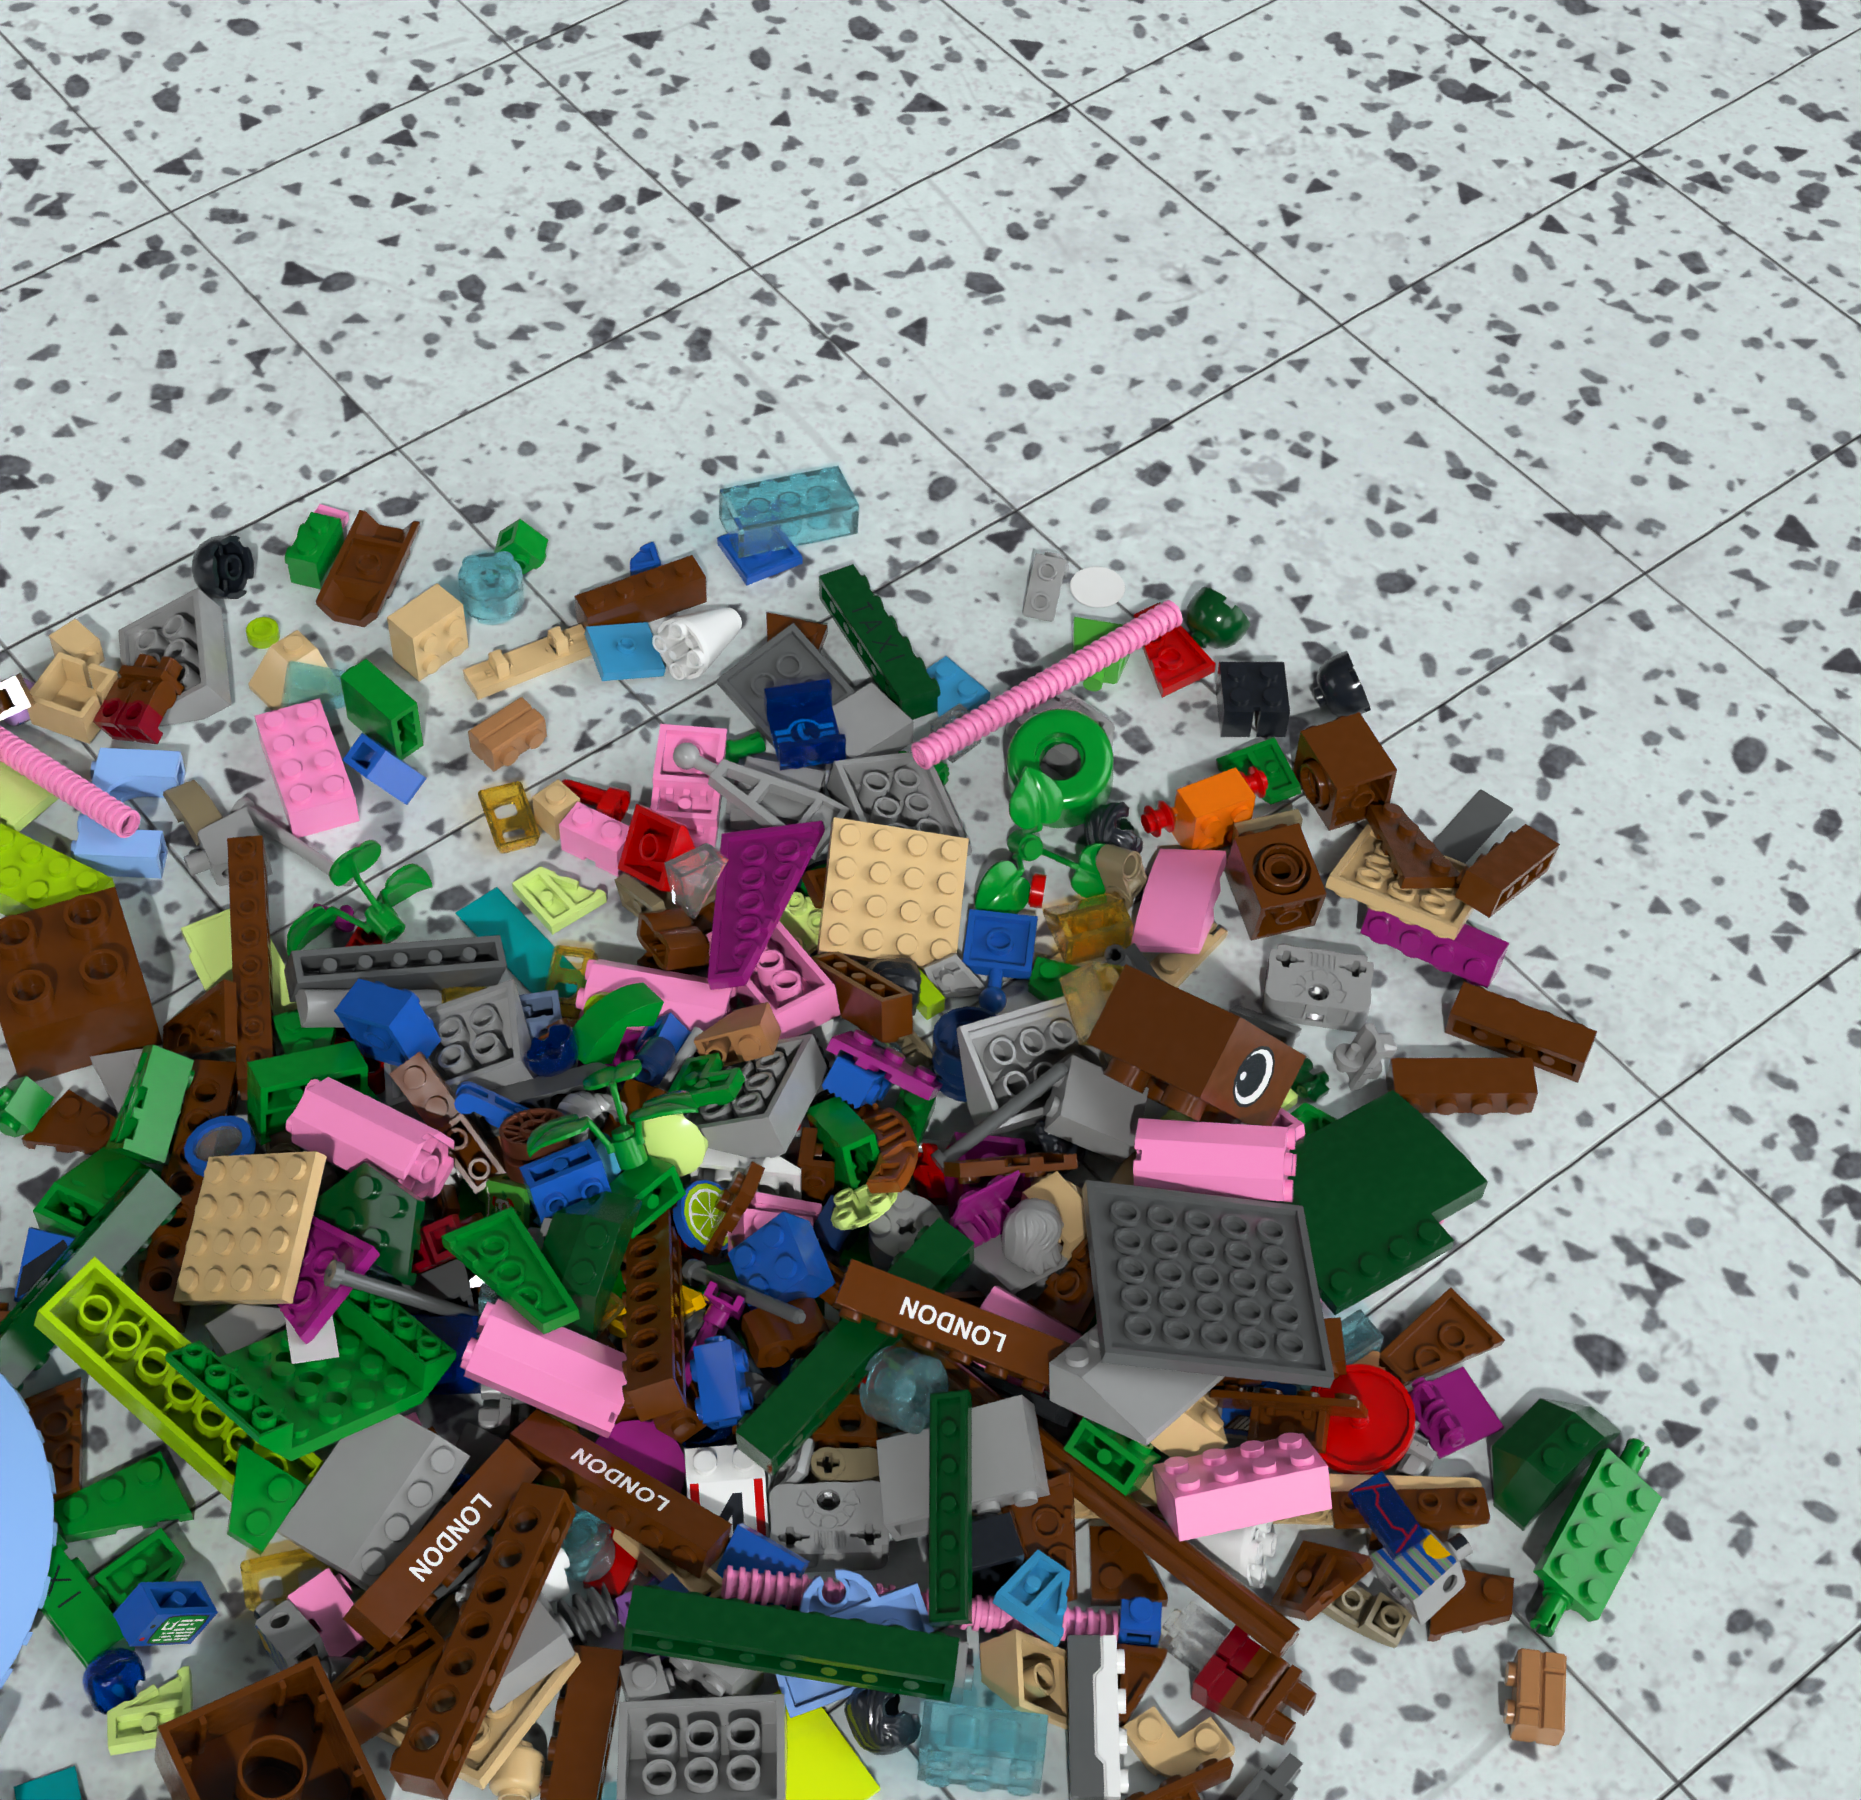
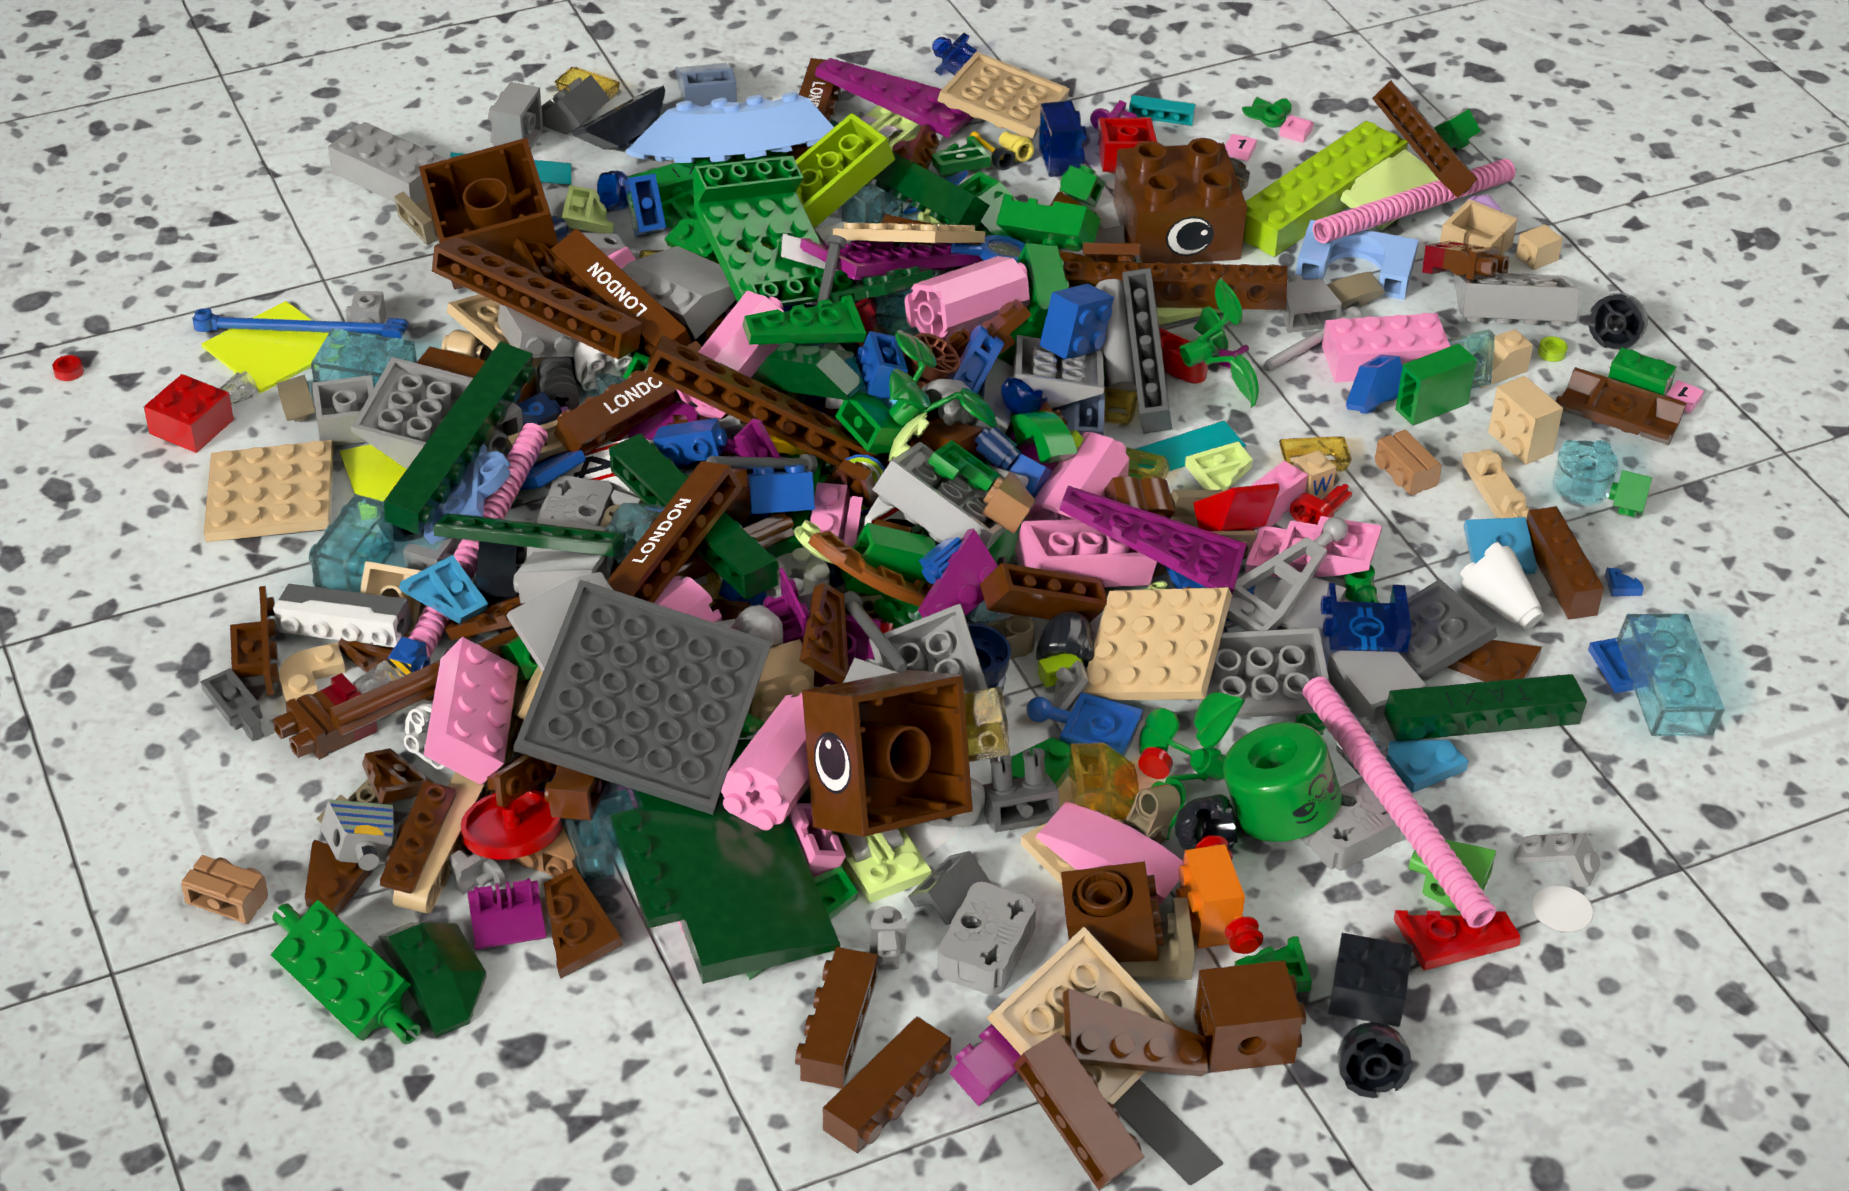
camera: 105 degrees right, 10 degrees down
(694, 876) = (1196, 508): clear slope -> none
(1214, 621) = (1487, 972): dark green cylinder -> none
(1310, 1085) = (893, 896): dark green piece -> none
(1387, 1515) = (409, 804): clear blue tile -> none

